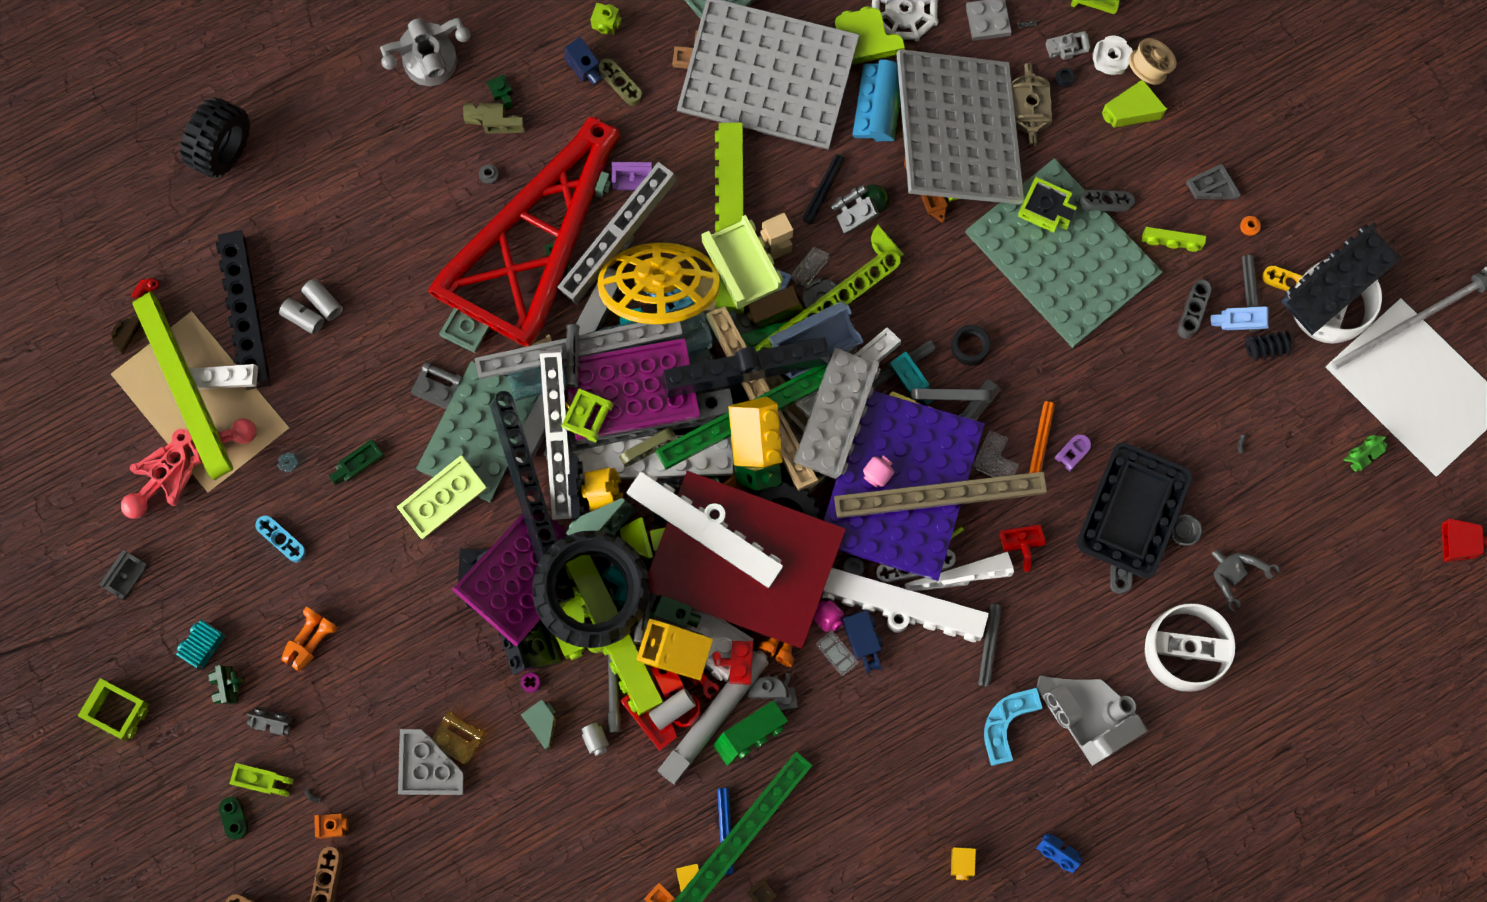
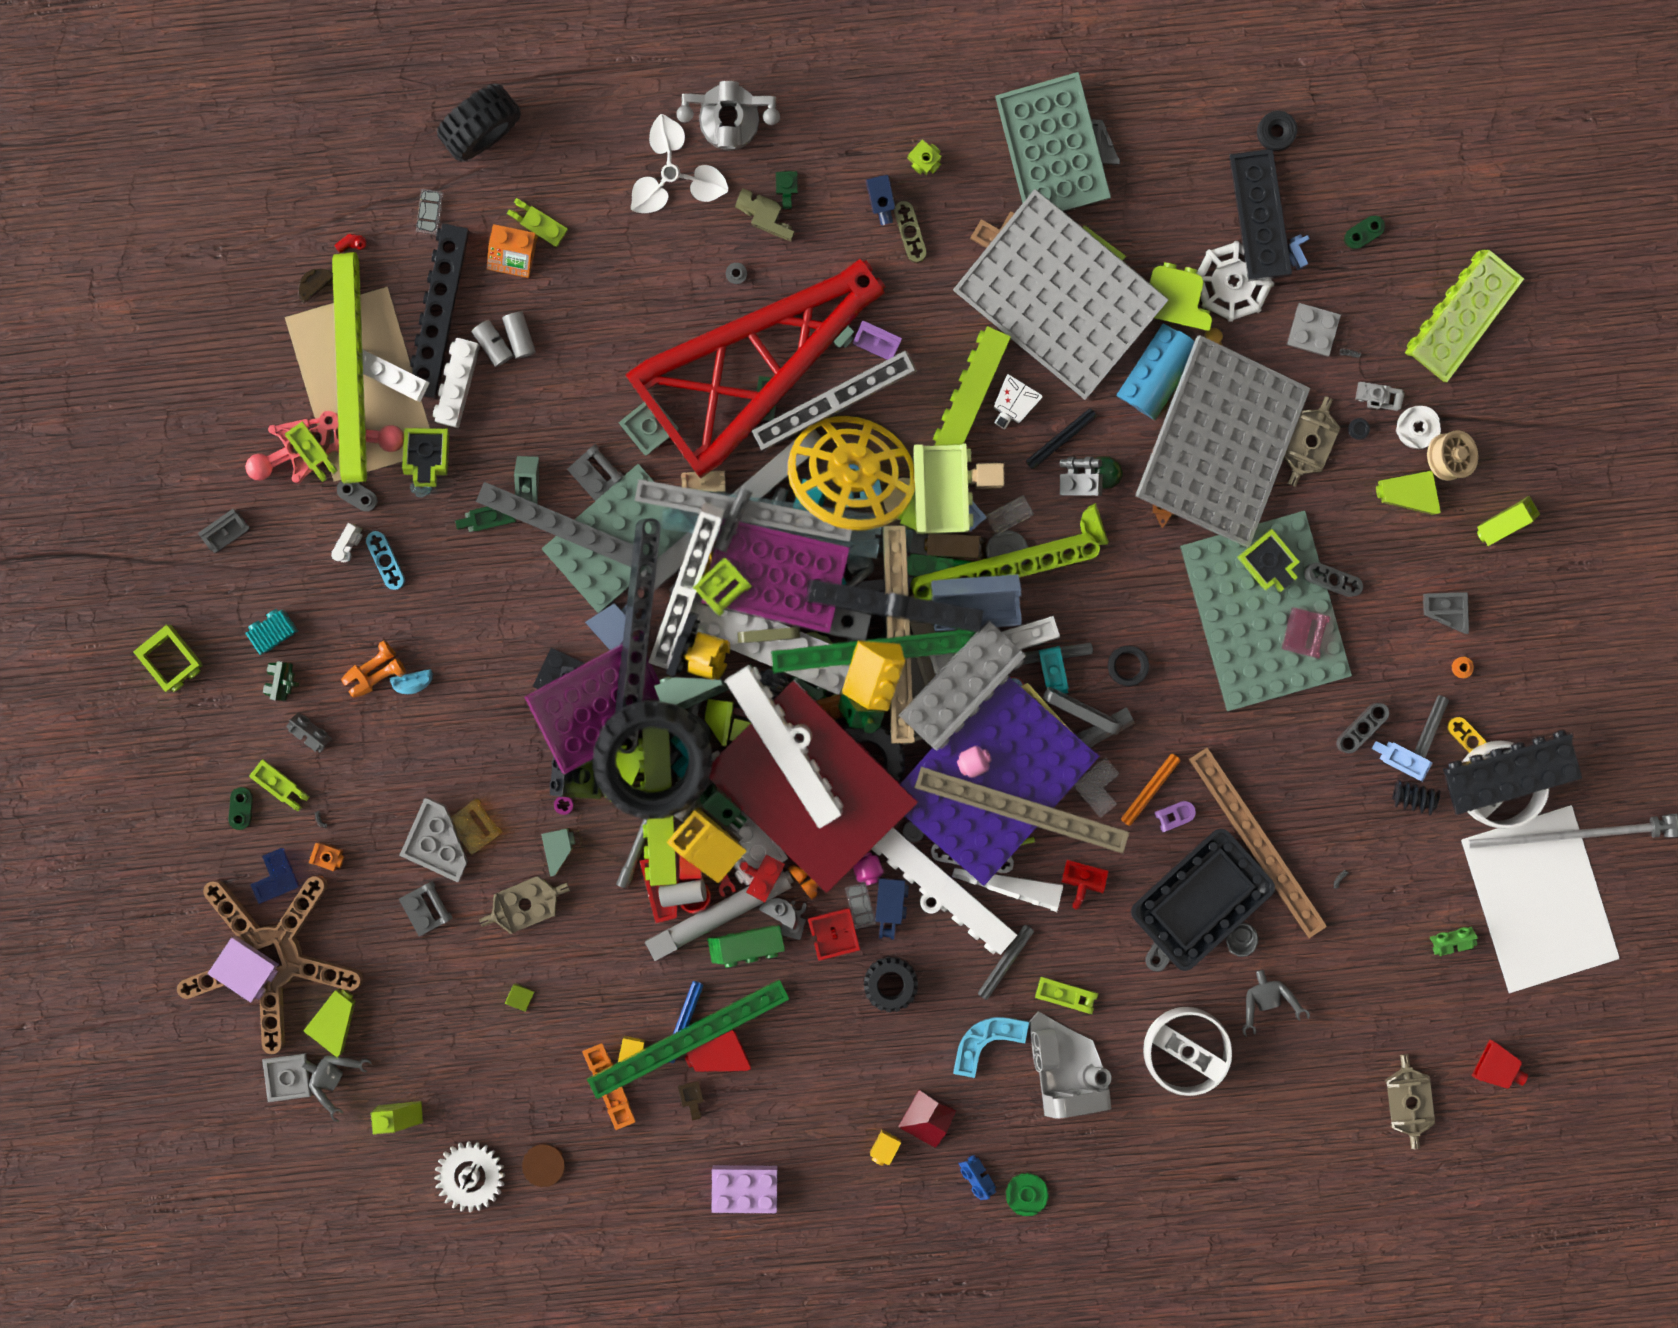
camera: 20 degrees right, 15 degrees up
(172, 466) = (309, 449): none -> lime hinge
(203, 235) = (429, 211): none -> tile
(231, 494) = (356, 495): none -> dark grey plate
(237, 534) = (349, 537): none -> white plate
(280, 431) = (425, 455): none -> piece
(284, 361) = (457, 382): none -> white brick
(287, 234) = (511, 251): none -> orange slope
(296, 867) = (280, 880): none -> clear blue plate
(302, 205) = (539, 223): none -> lime hinge
(347, 634) = (412, 682): none -> medium azure plate
(379, 416) = (527, 478): none -> sand green slope
(385, 92) = (648, 194): none -> white plant
(420, 439) = (556, 523): none -> dark grey plate
(439, 840) = (419, 911): none -> dark grey plate
(442, 497) = (554, 591): yellowish green plate -> none
(503, 505) = (609, 625): none -> sand blue torso
(515, 793) = (507, 910): none -> dark tan plate
(564, 877) = (519, 997): none -> lime slope
(595, 739) = (600, 886): light grey brick -> none
(770, 174) = (1014, 401): none -> white torso
(771, 845) = (719, 1054): none -> red slope
(832, 680) = (844, 931): none -> red piece
(907, 693) = (897, 1002): none -> black tyre
(988, 819) = (927, 1118): none -> dark red slope
(1056, 649) = (1065, 995): none -> lime plate
(1099, 252) = (1298, 631): none -> clear pink plate
(1111, 847) = (1027, 1194): none -> green tile
(1156, 443) = (1257, 842): none -> medium nougat plate
(1173, 239) = (1378, 648): lime plate -> none
(1224, 94) = (1508, 521): none -> lime slope
(1407, 623) = (1400, 1087): none -> dark tan plate

